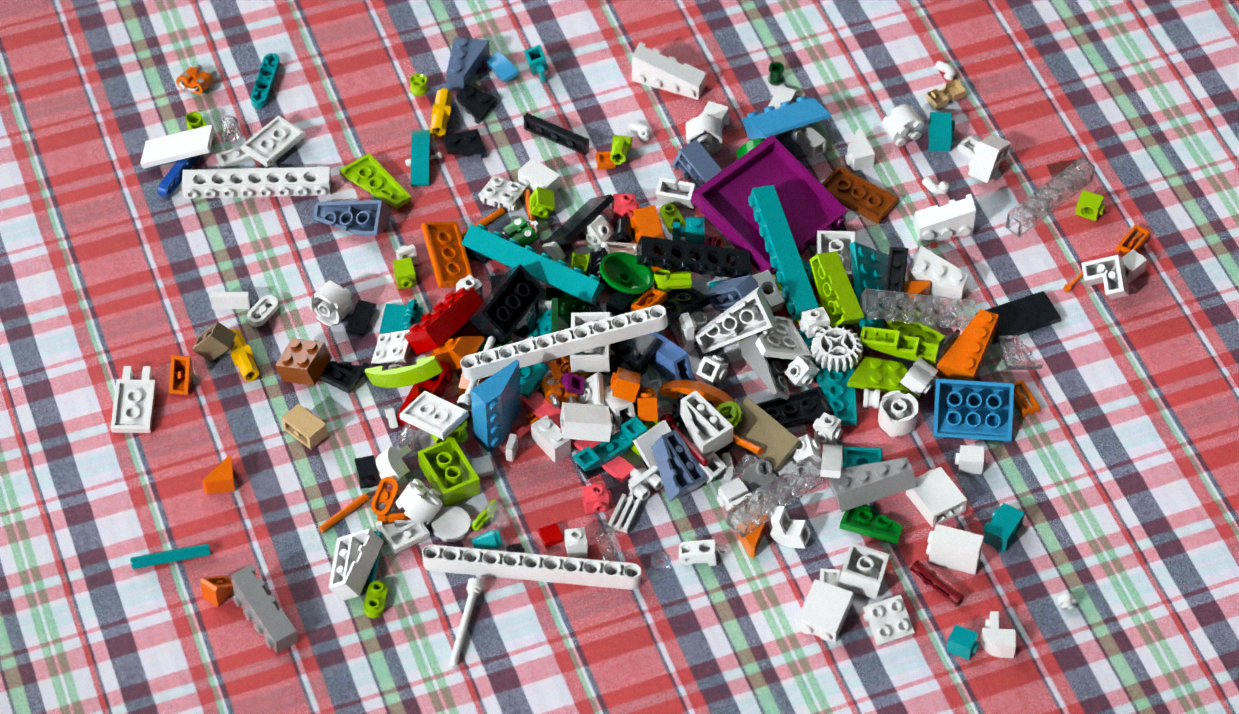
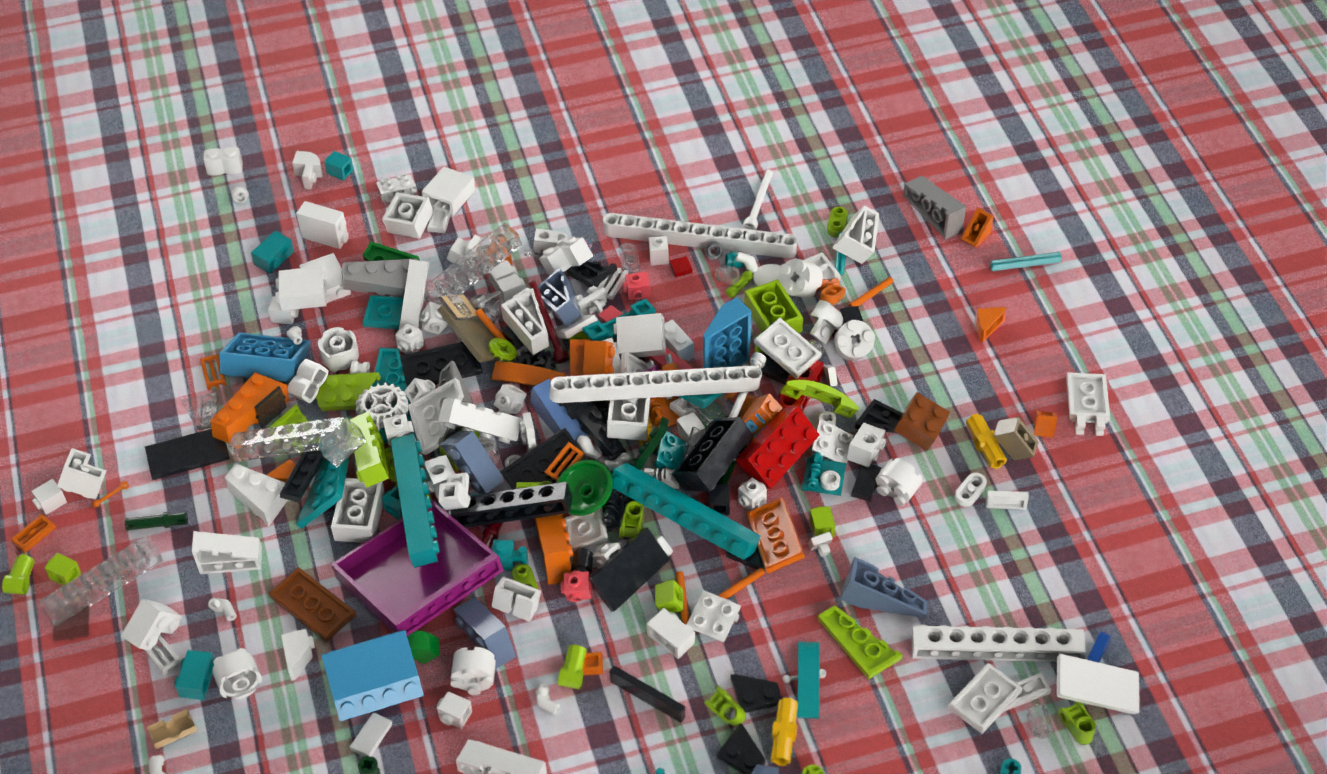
camera: 175 degrees left, 0 degrees up
(304, 426) = (914, 361): tan brick -> none
(359, 350) = (866, 445): none -> white brick
(365, 436) = (844, 336): none -> white brick
(395, 311) = (830, 480): none -> white tile
(476, 530) = (748, 260): none -> white arm
(490, 123) = (723, 705): none -> lime piece
(521, 232) = (696, 565): green piece -> none
(648, 516) = (591, 272): none -> black wing
(675, 525) = (565, 255): none -> white brick
(744, 252) = (455, 492): none -> white brick
(780, 450) = (459, 307): none -> piece
(858, 278) = (342, 442): none -> clear brick
(901, 346) = (316, 409): lime slope -> none
(930, 577) = (350, 215): dark red pin -> none
(951, 432) = (295, 334): none -> white arm
(952, 459) = (301, 288): none -> white brick
(1043, 250) = (165, 520): none -> dark green pin
(1103, 639) = (223, 161): none -> white brick
(1127, 199) = (18, 580): none -> lime piece

